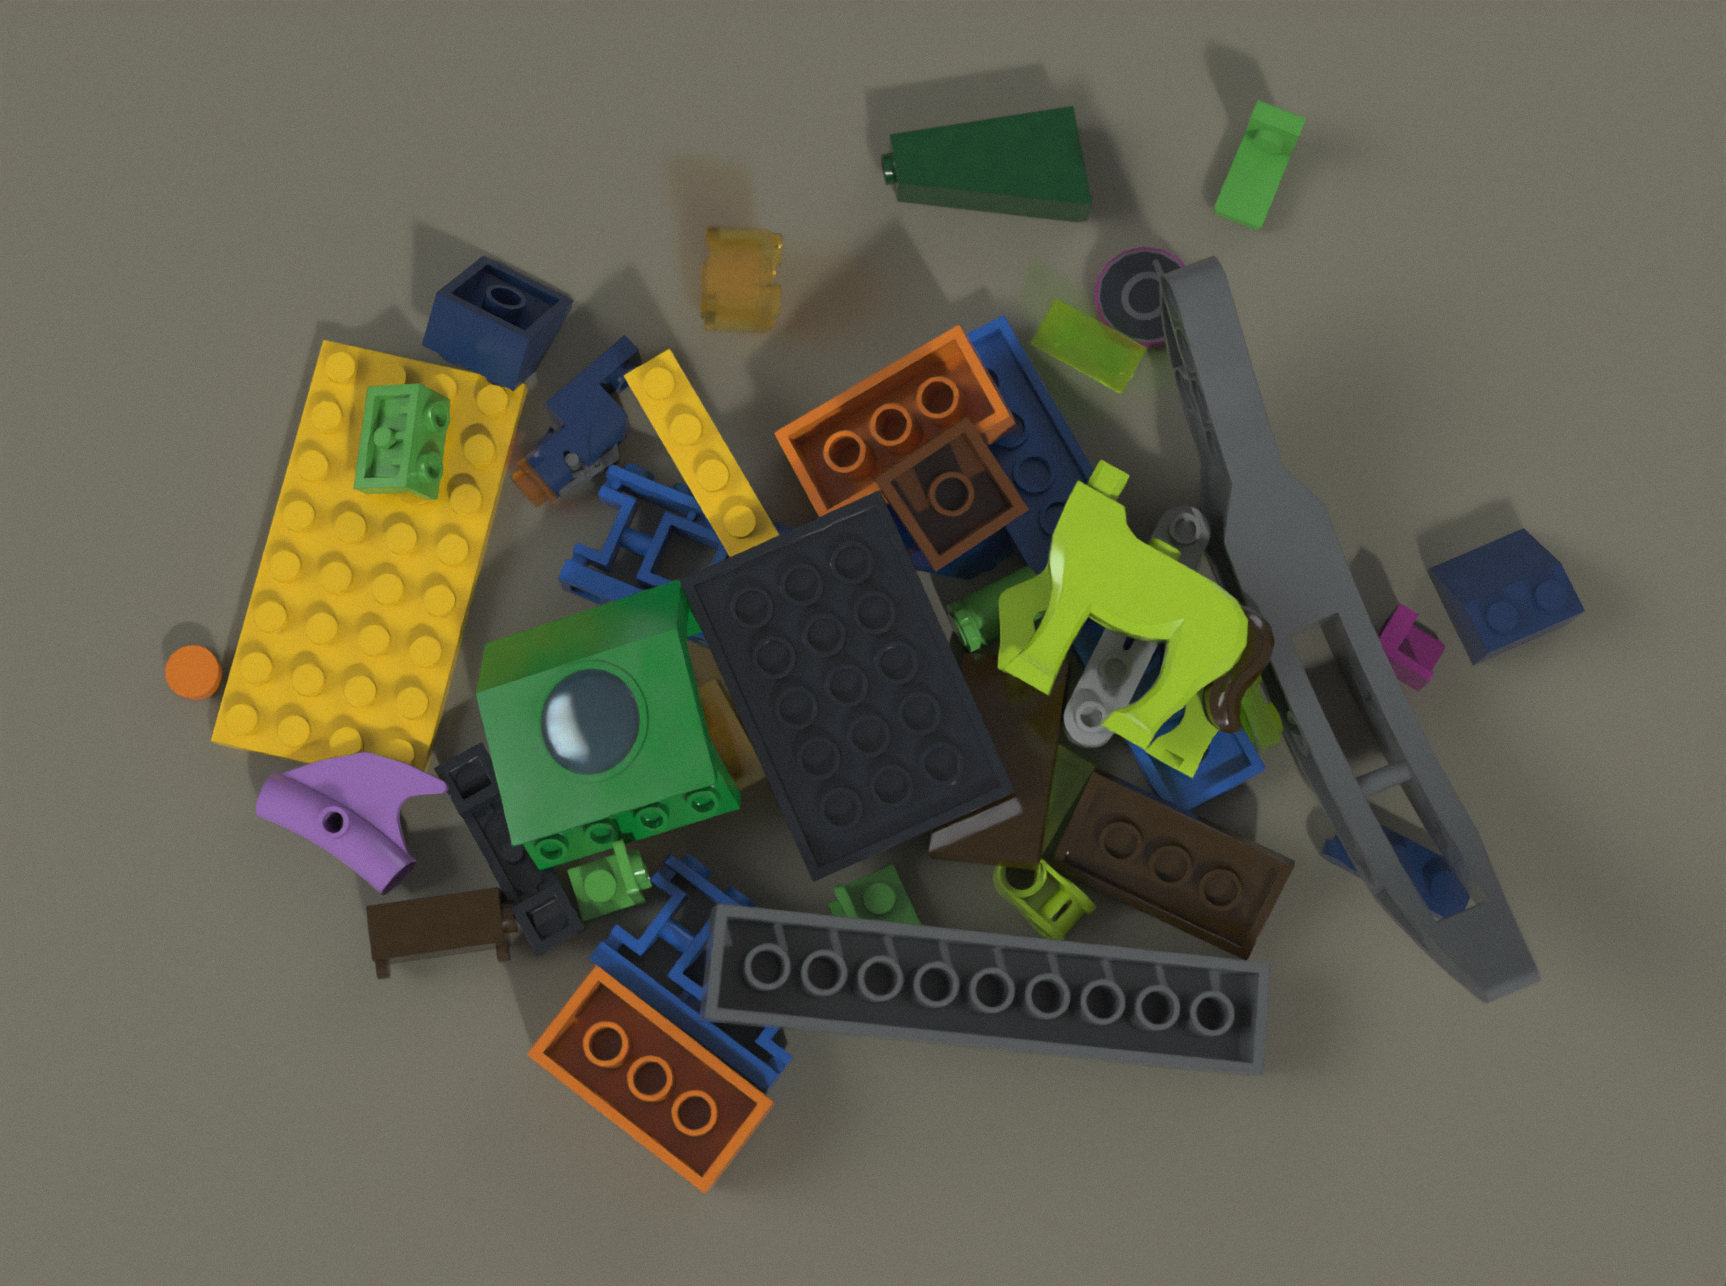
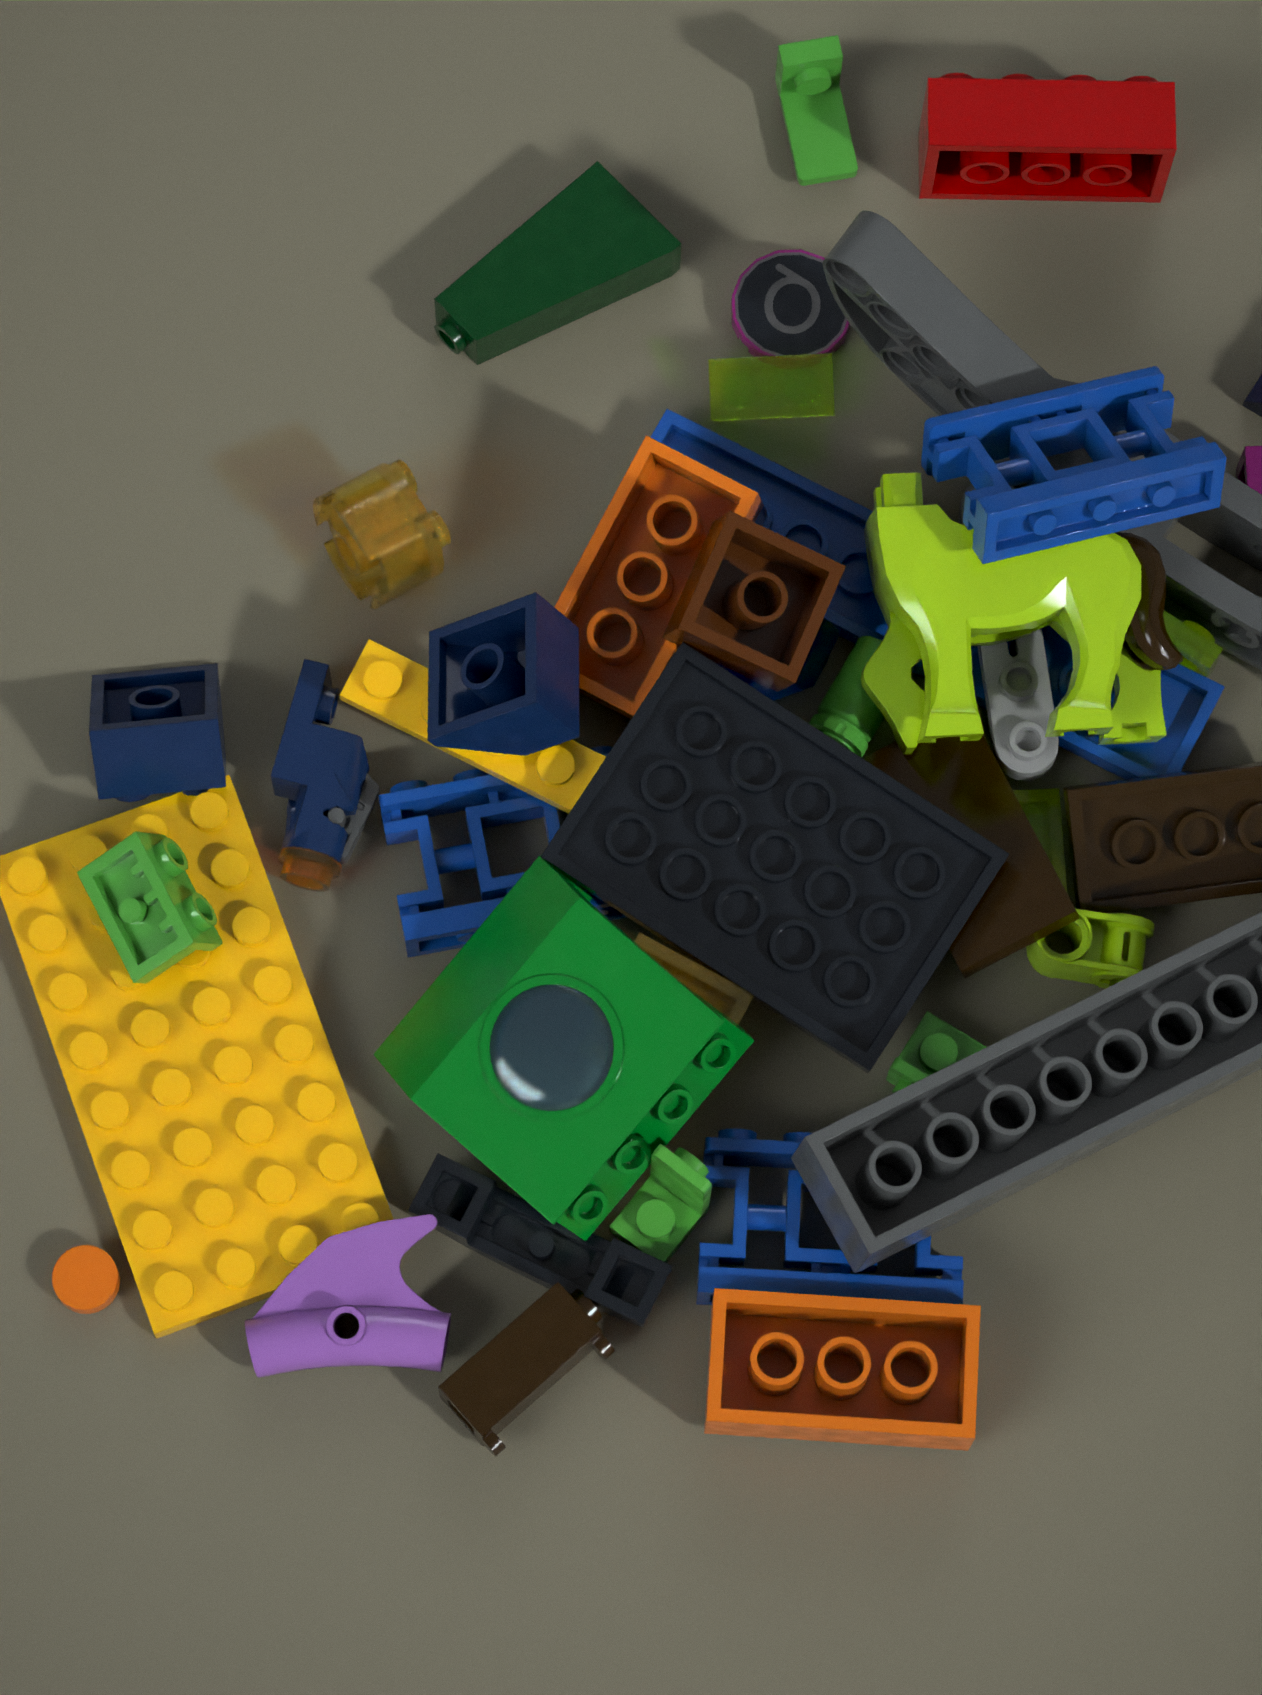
camera: 35 degrees left, 5 degrees down
(739, 438) = (505, 679): none -> dark blue slope
(1235, 570) = (1081, 499): none -> blue fence
(1409, 286) = (1046, 138): none -> red brick

